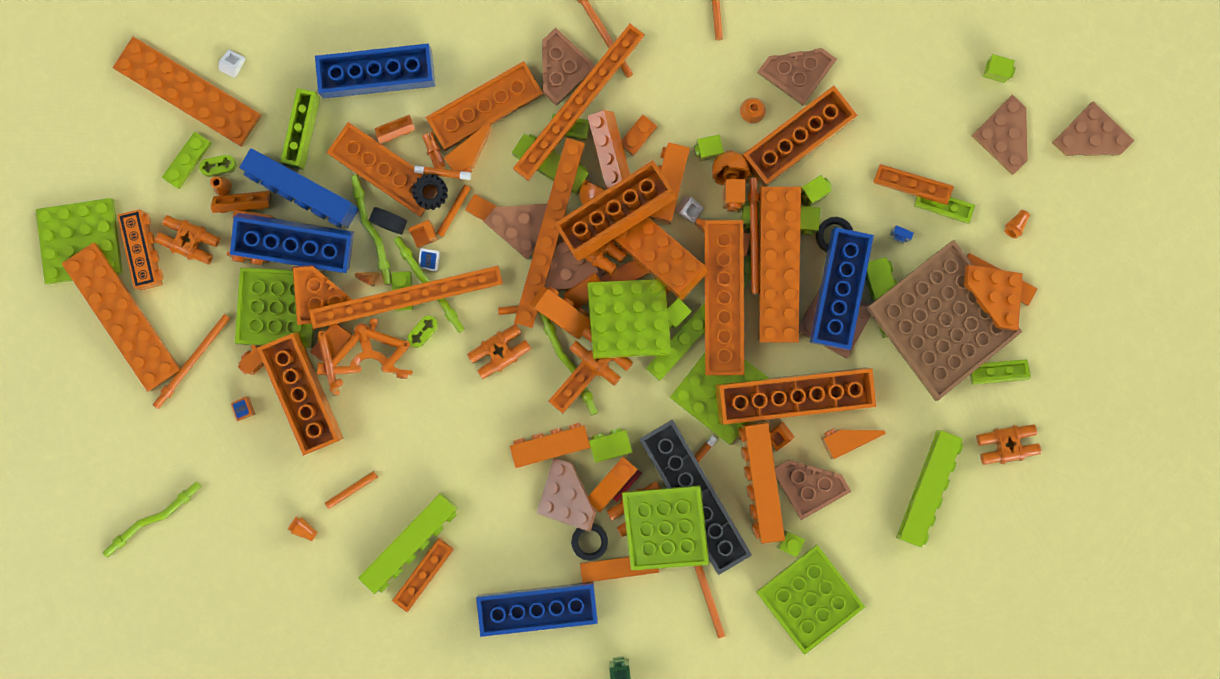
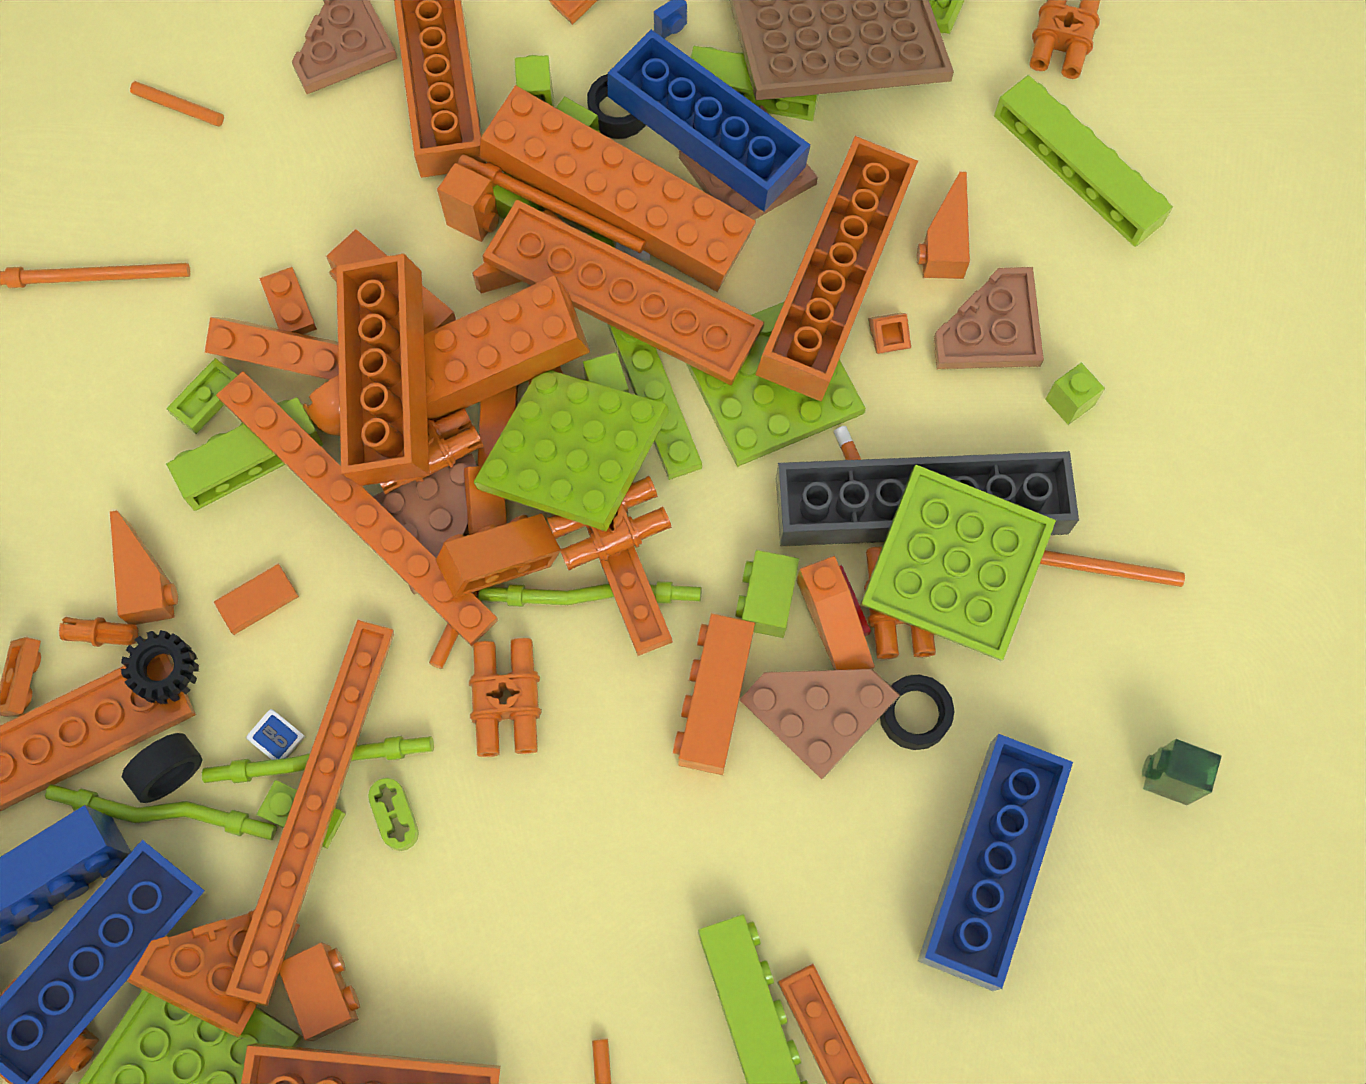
camera: 65 degrees left, 15 degrees down
(363, 334) = (335, 917): orange piece -> none
(368, 277) = (239, 861): clear orange slope -> none
(423, 233) = (225, 722): orange panel -> none
(443, 172) = (142, 626): orange bar -> none
(453, 211) = (220, 653): orange bar -> none
(484, 105) = (75, 529): orange plate -> none
(518, 225) = (313, 556): nougat plate -> none
(562, 66) = (102, 356): nougat plate -> none
(578, 102) = (176, 359): orange plate -> none
(610, 569) = (982, 702): orange tile -> none
(689, 209) = (452, 285): white slope -> none
(708, 147) = (375, 208): lime brick -> none
(730, 166) = (418, 193): orange cylinder -> none
(749, 114) = (357, 125): orange cone -> none
(762, 481) = (954, 378): orange brick -> none
(810, 599) = (1181, 411): lime plate -> none

